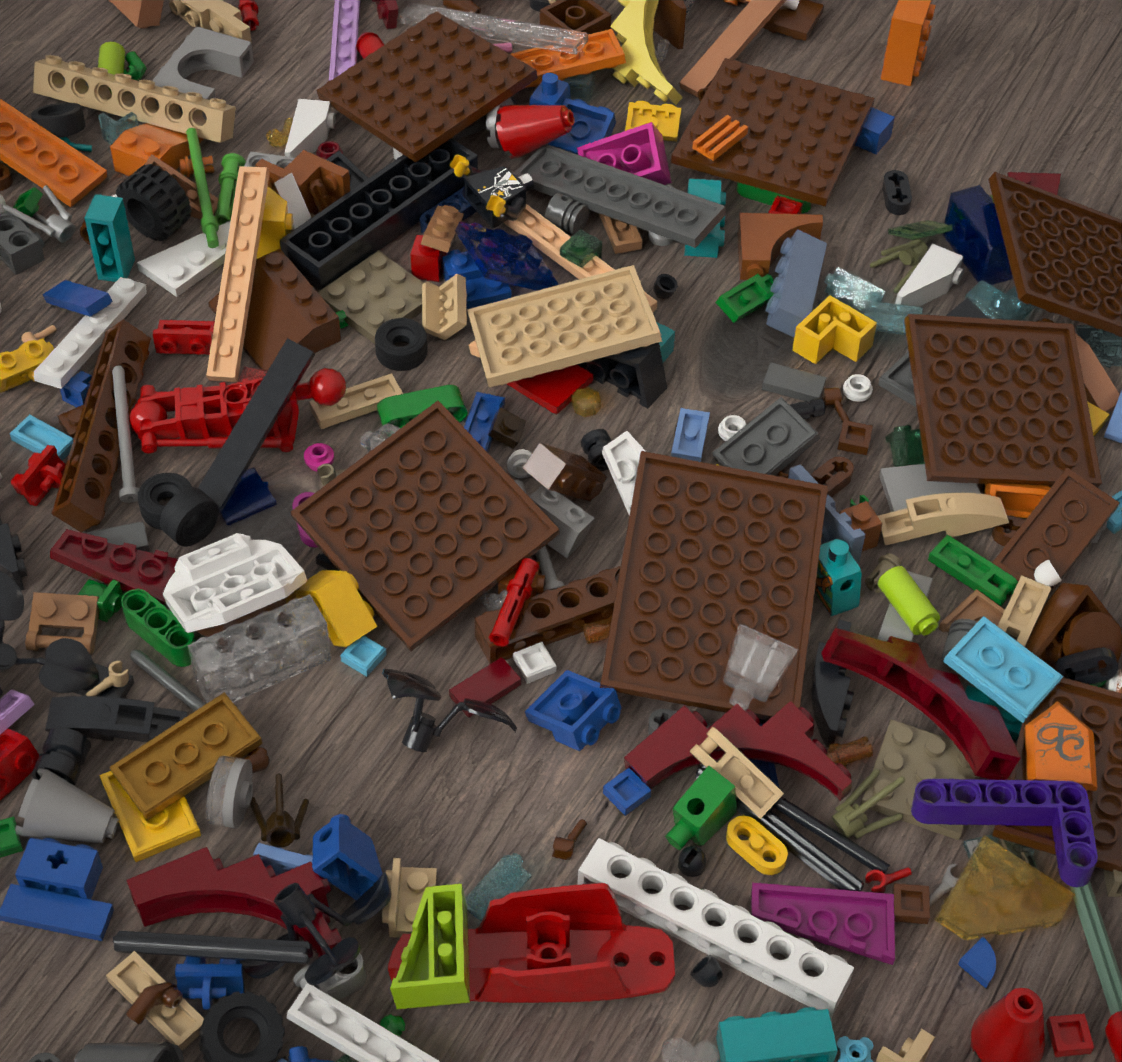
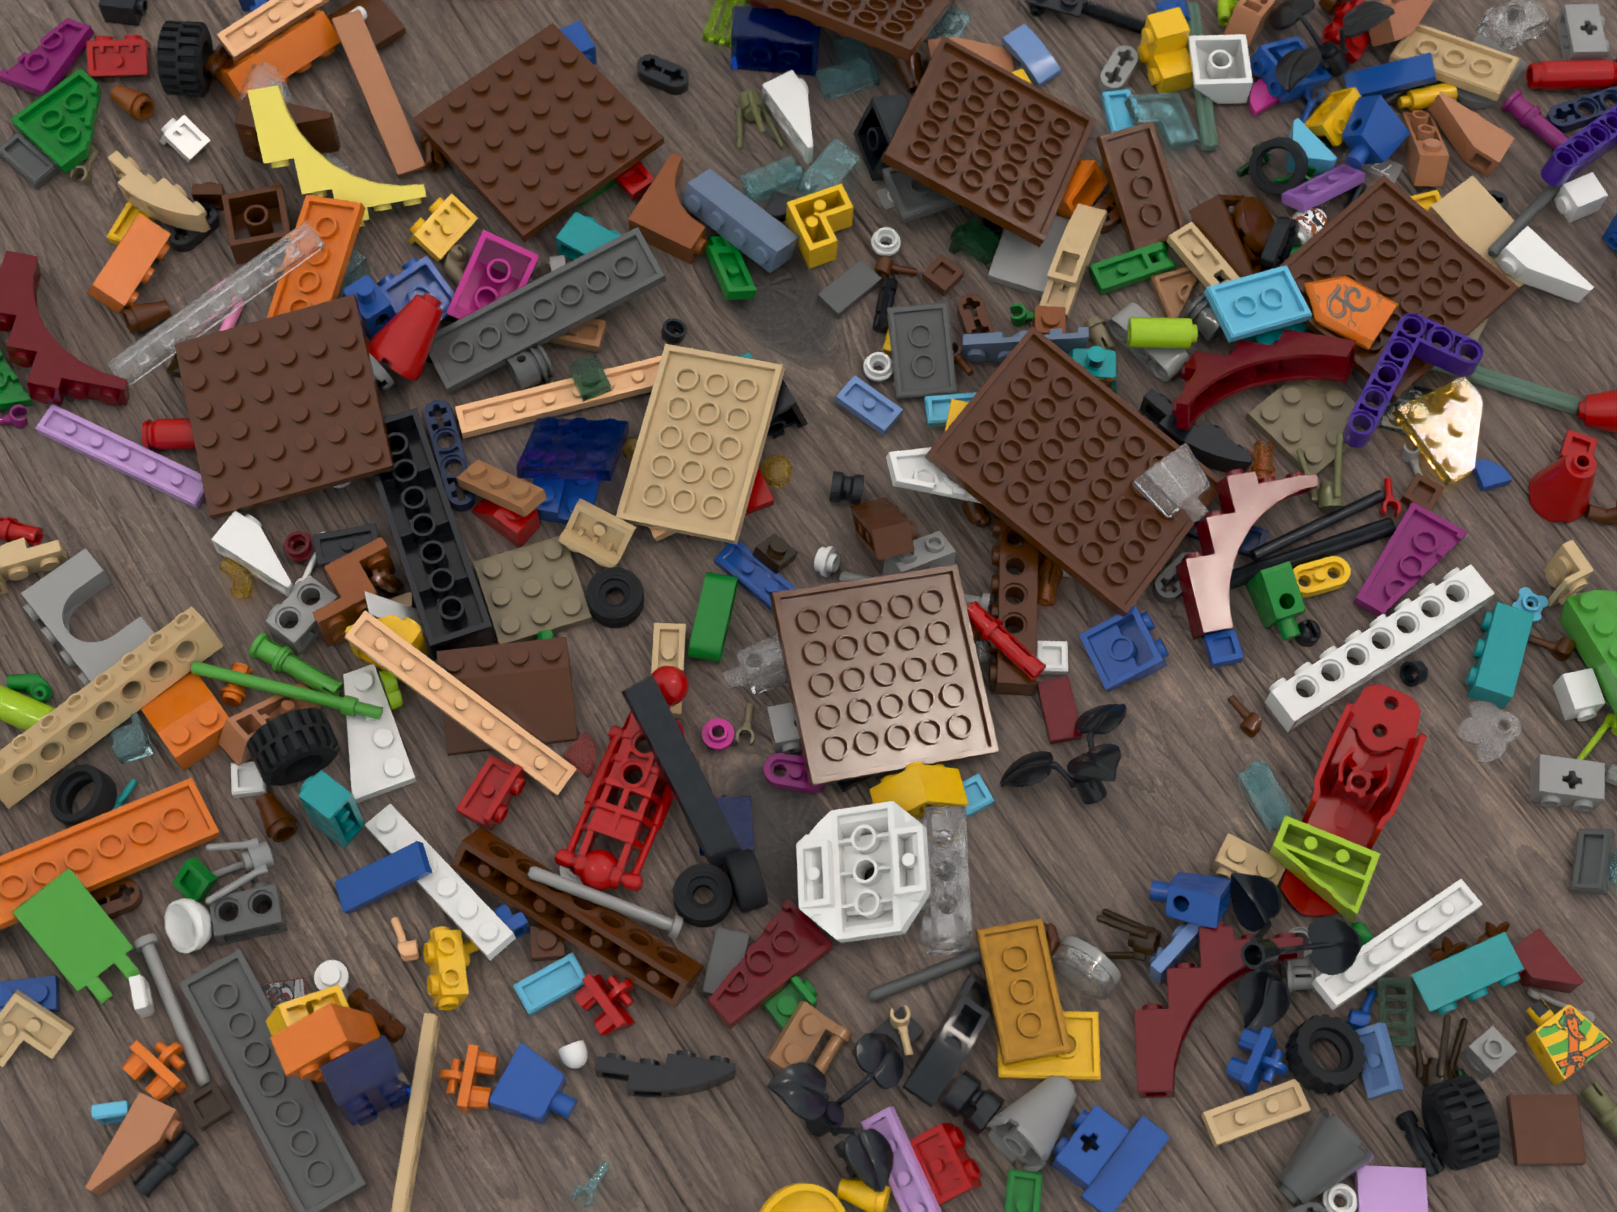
camera: 65 degrees left, 15 degrees up
(145, 618) = (849, 973): green beam -> none
(151, 996) = (1263, 1101): reddish brown arm -> none
(213, 947) = (1240, 1044): black axle -> none
(494, 192) = (477, 417): black torso -> none
(716, 135) = (529, 162): orange tile -> none
(750, 783) = (1265, 553): tan plate -> none
(920, 229) = (730, 84): clear green piece -> none
(1047, 574) = (1177, 217): white hinge -> none

